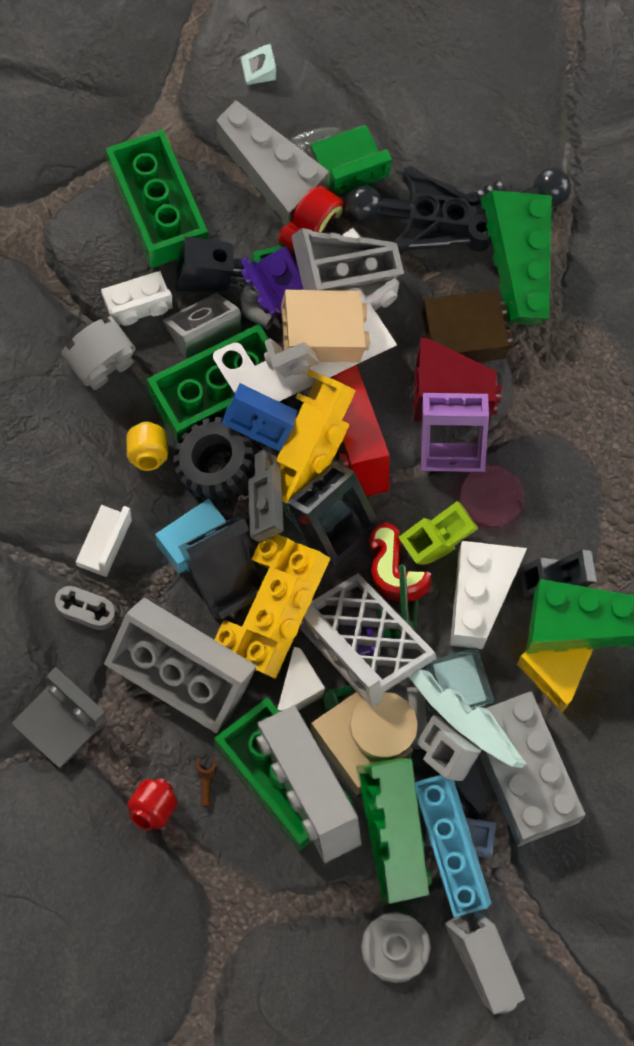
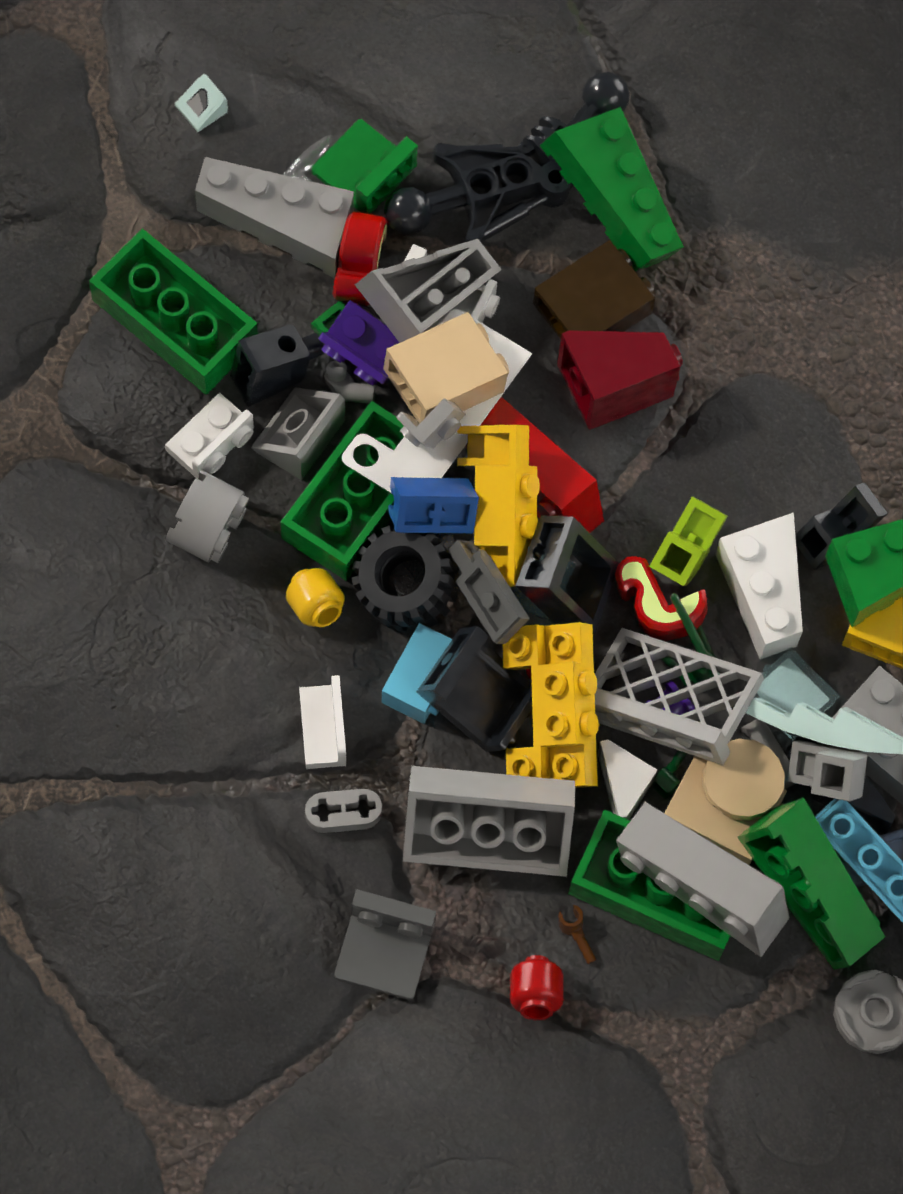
camera: 25 degrees left, 0 degrees up
(454, 410) = (640, 399): medium lavender window -> none
(492, 497) = (720, 473): clear pink tile -> none

